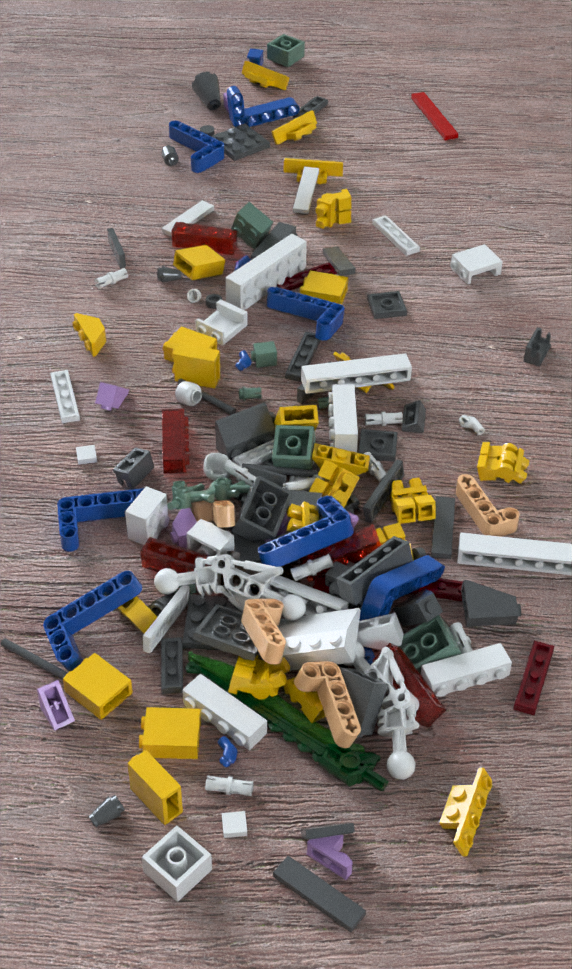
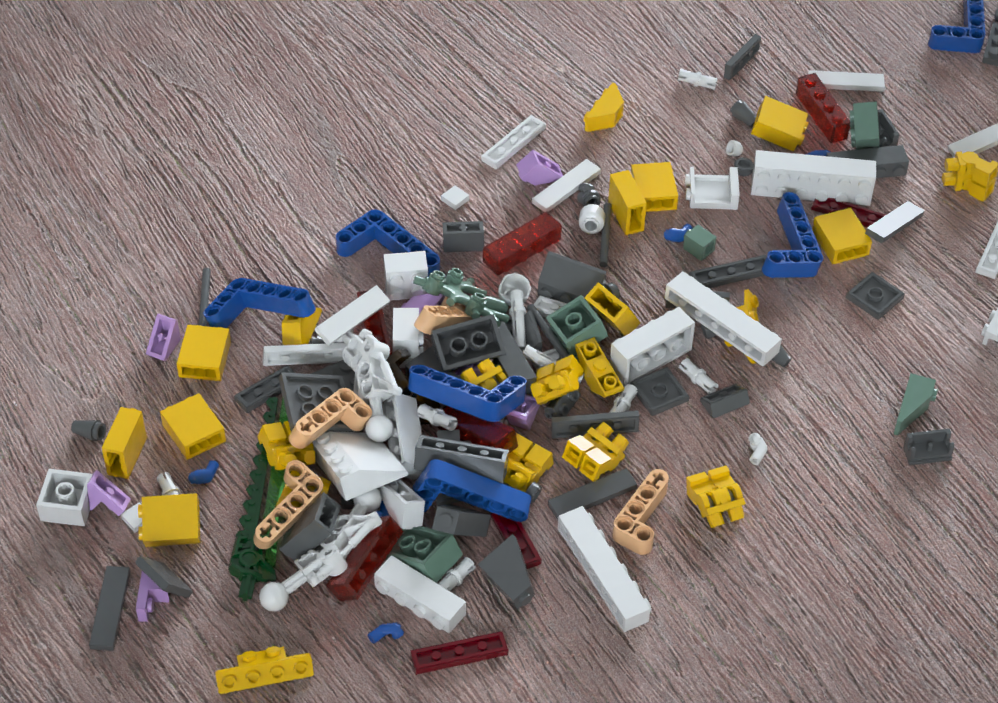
camera: 55 degrees right, 5 degrees up
(139, 392) = (566, 186): none -> white tile
(163, 384) = (588, 195): none -> dark grey piece
(170, 155) = (926, 12): dark grey brick -> none
(170, 561) = (352, 315): none -> white tile
(201, 829) = (103, 490): none -> lavender slope
(225, 712) = (240, 448): white brick -> none
(249, 393) = (637, 261): sand green pin -> none
(267, 796) = (169, 520): none -> yellow brick
(486, 704) = (385, 629): none -> blue arm
(494, 333) = (916, 400): none -> sand green slope

